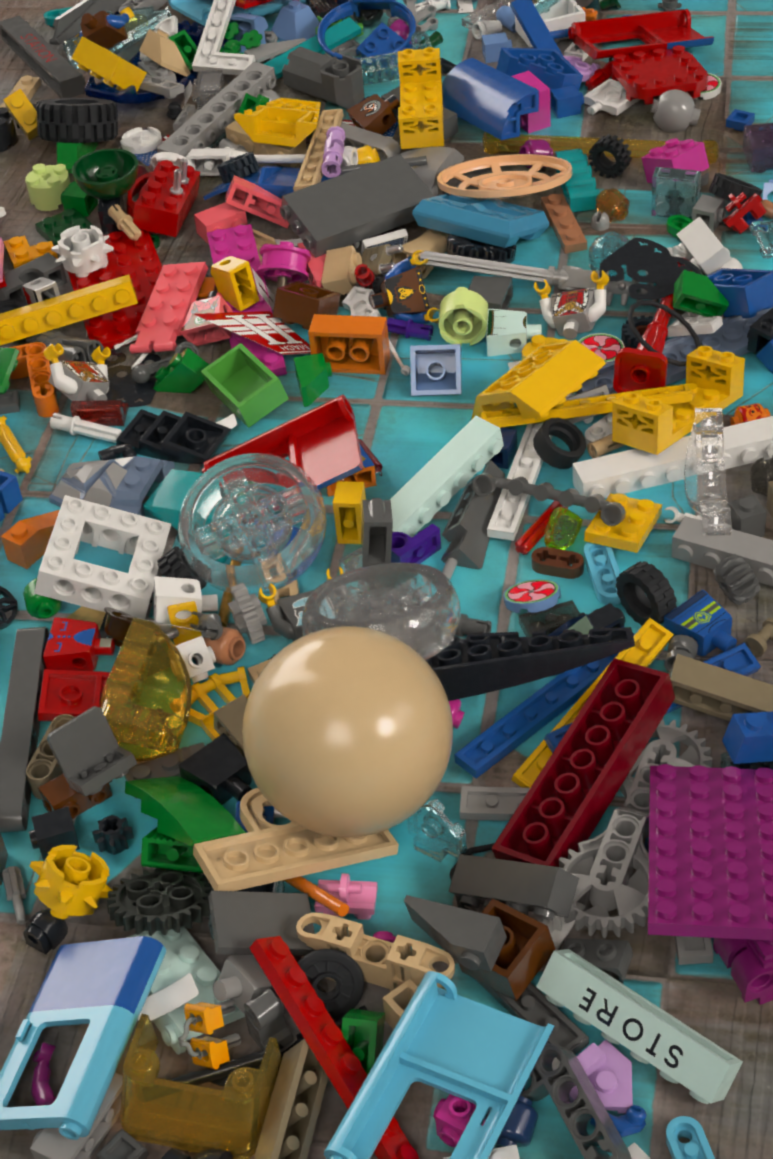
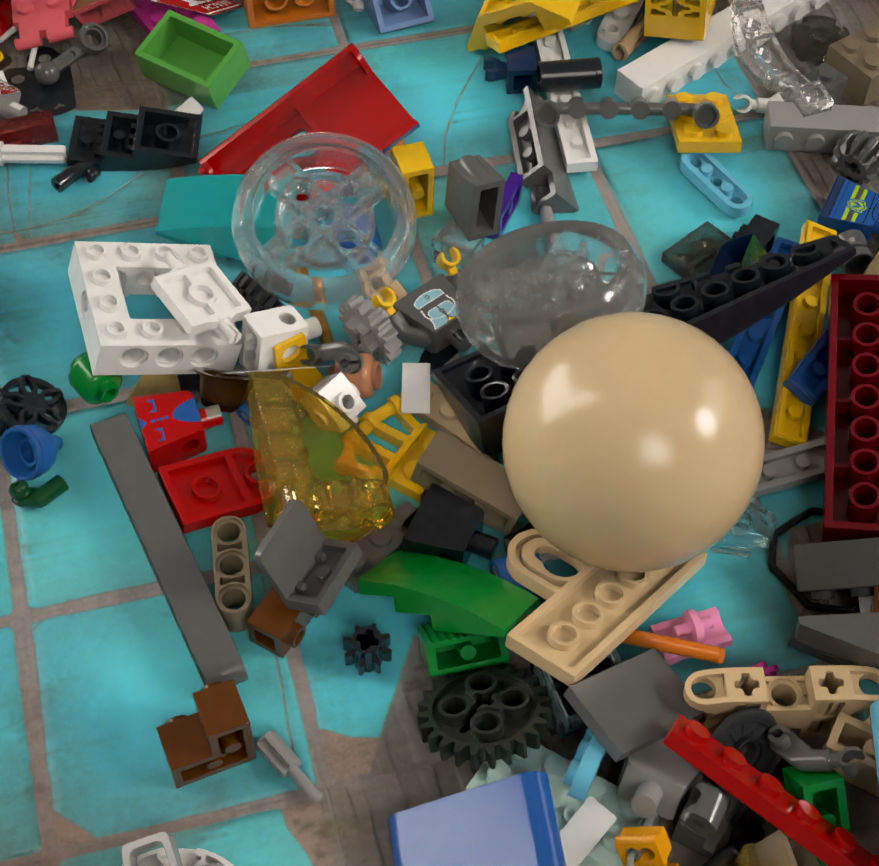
camera: 30 degrees left, 10 degrees up
(29, 539) = (36, 303): orange slope -> none
(45, 931) = (355, 800): black piece -> none
(53, 830) = (293, 671): black brick -> none
(71, 881) = (365, 729): yellow brick -> none
(112, 482) = (98, 211): sand blue wedge -> none
(130, 556) = (200, 297): none -> white plate
(181, 374) = (101, 63): green slope -> none
(196, 955) = (584, 766): none -> medium azure plate
(257, 664) = (415, 388): none -> white sticker
(312, 376) = (259, 34): green slope -> none
(364, 1001) = (807, 759): none -> dark grey arm
(444, 475) = (494, 105): light aqua brick -> none
(527, 458) = (569, 75): none -> black pin
(532, 595) = (662, 226): tile -> none
(536, 530) = (616, 148): red axle -> none
(550, 452) = (586, 42): black tyre -> none
(557, 562) = (659, 183): copper beam -> none
(562, 529) = (646, 145): rock -> none
(645, 580) = (794, 176): black tyre -> none

